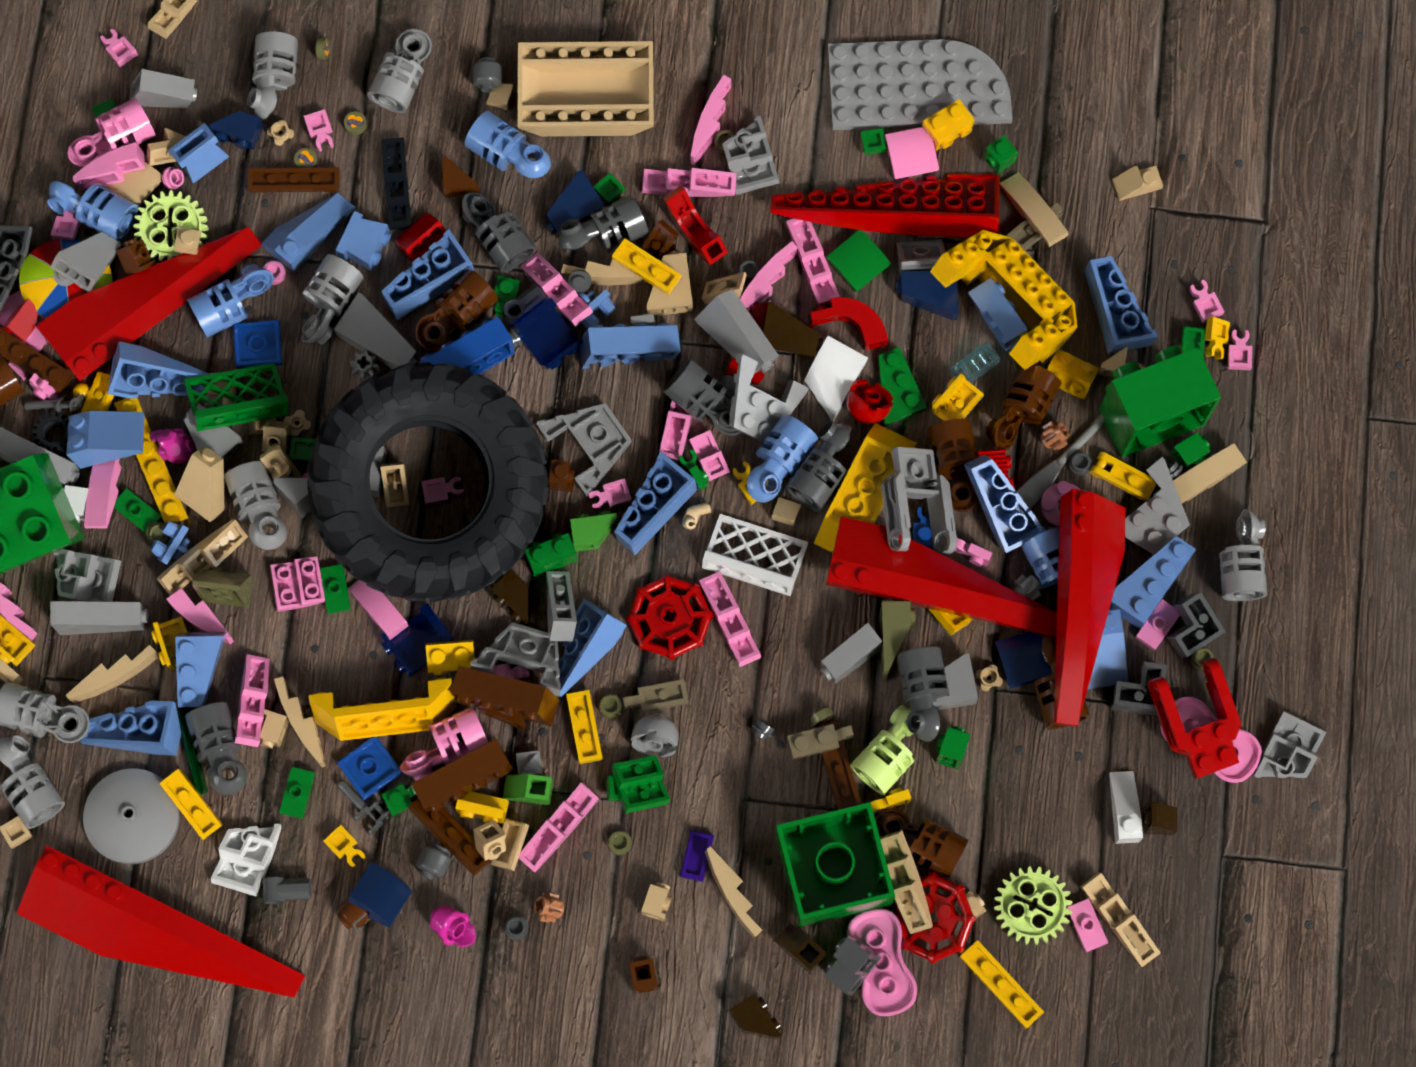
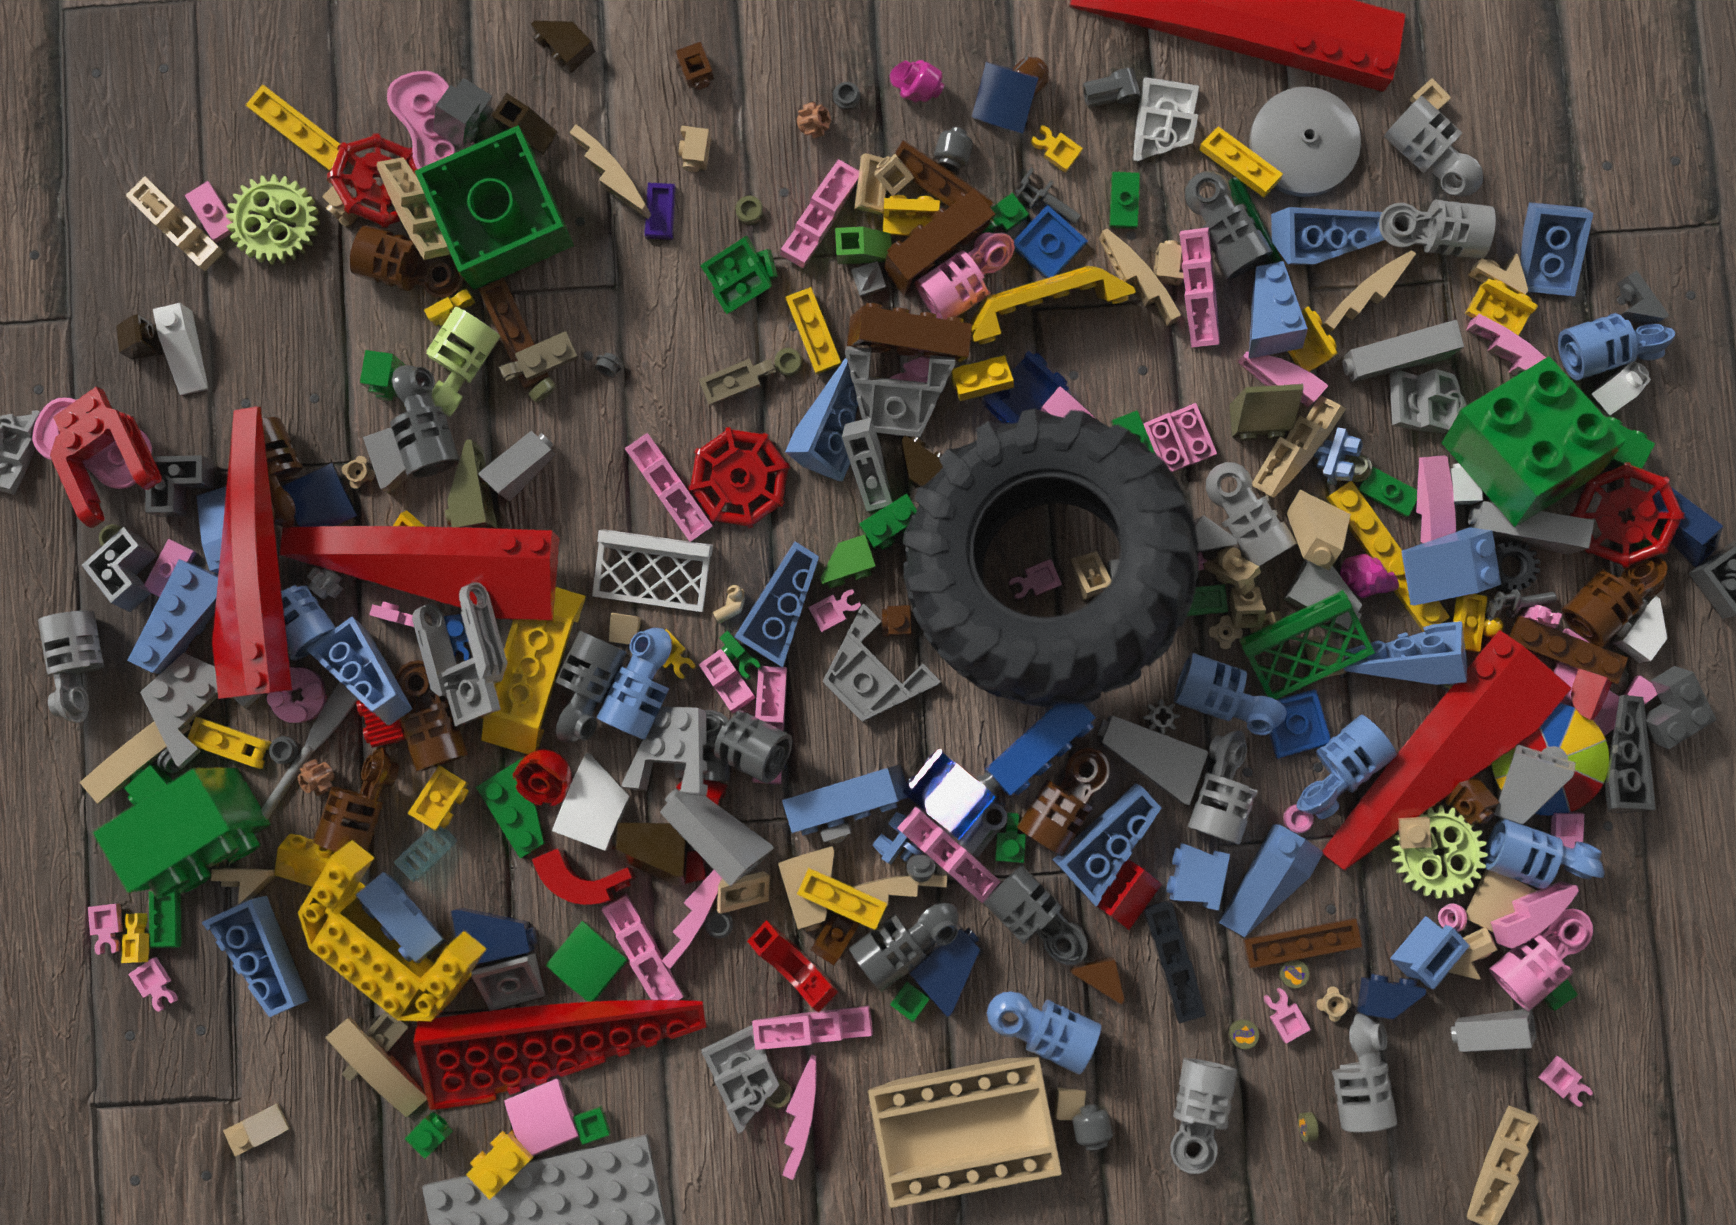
camera: 175 degrees right, 10 degrees up
(314, 373) = (1218, 691): none -> medium blue cylinder
(655, 734) = (728, 334): light grey cylinder -> none

